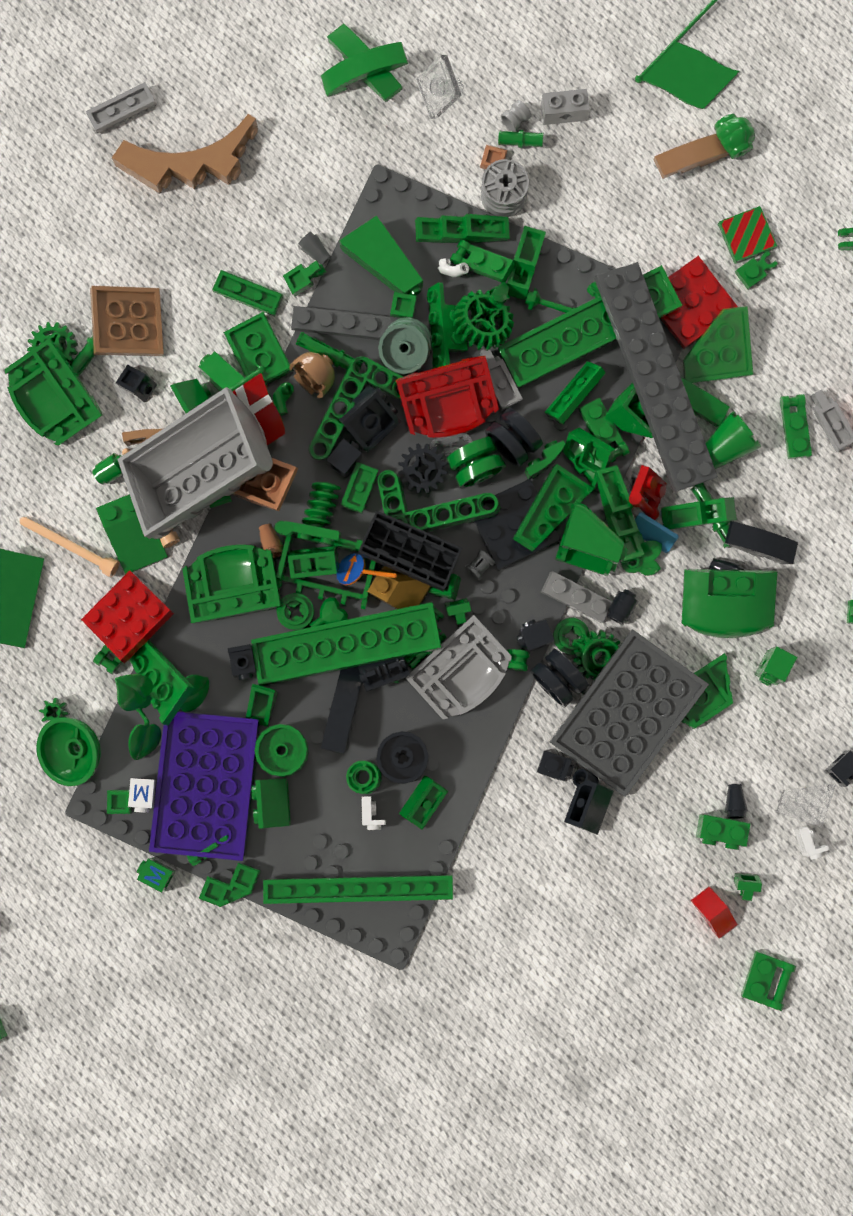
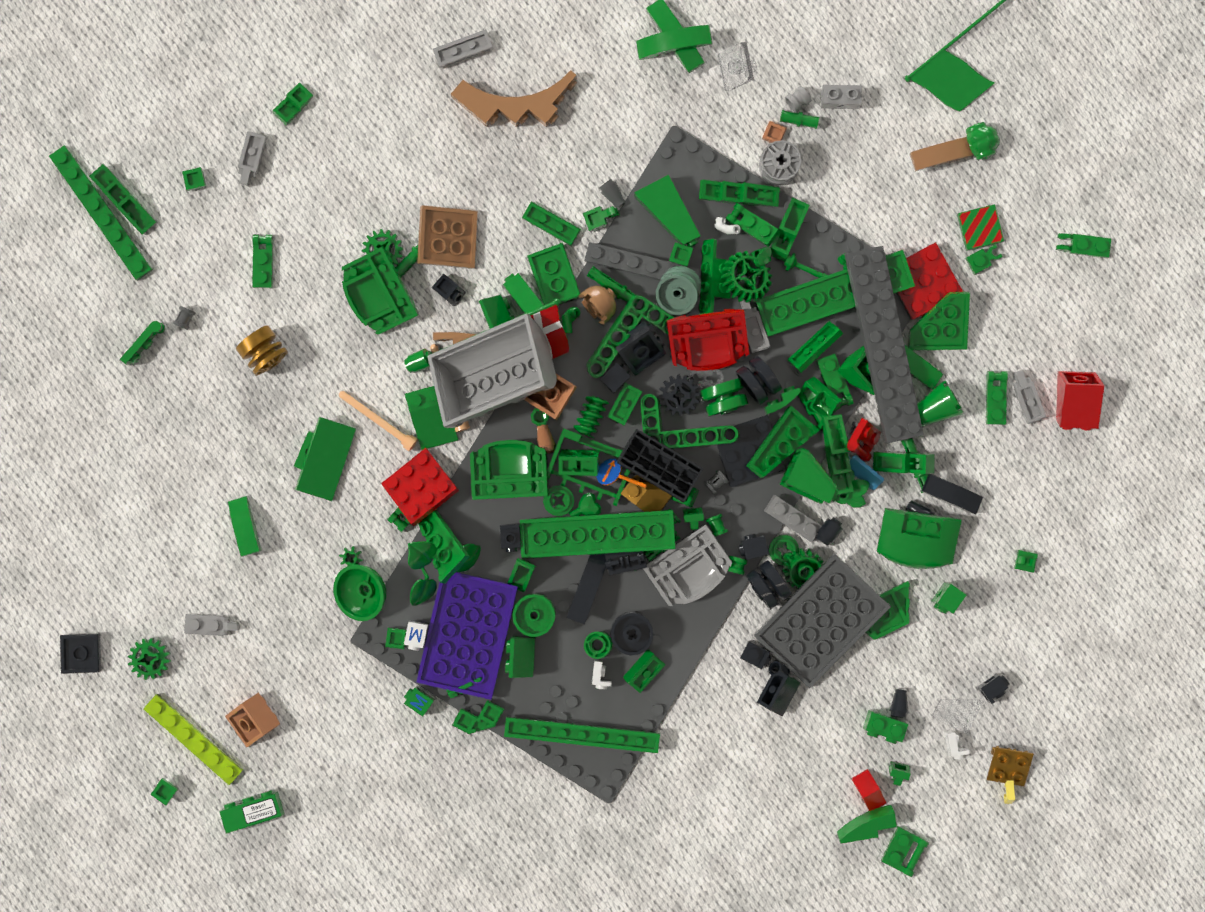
camera: 10 degrees right, 5 degrees up
(260, 515) = (539, 417): none -> green tile
(306, 532) = (577, 438): green hinge -> none
(487, 615) = (717, 525): none -> green bush
(719, 953) = (867, 825): none -> green slope

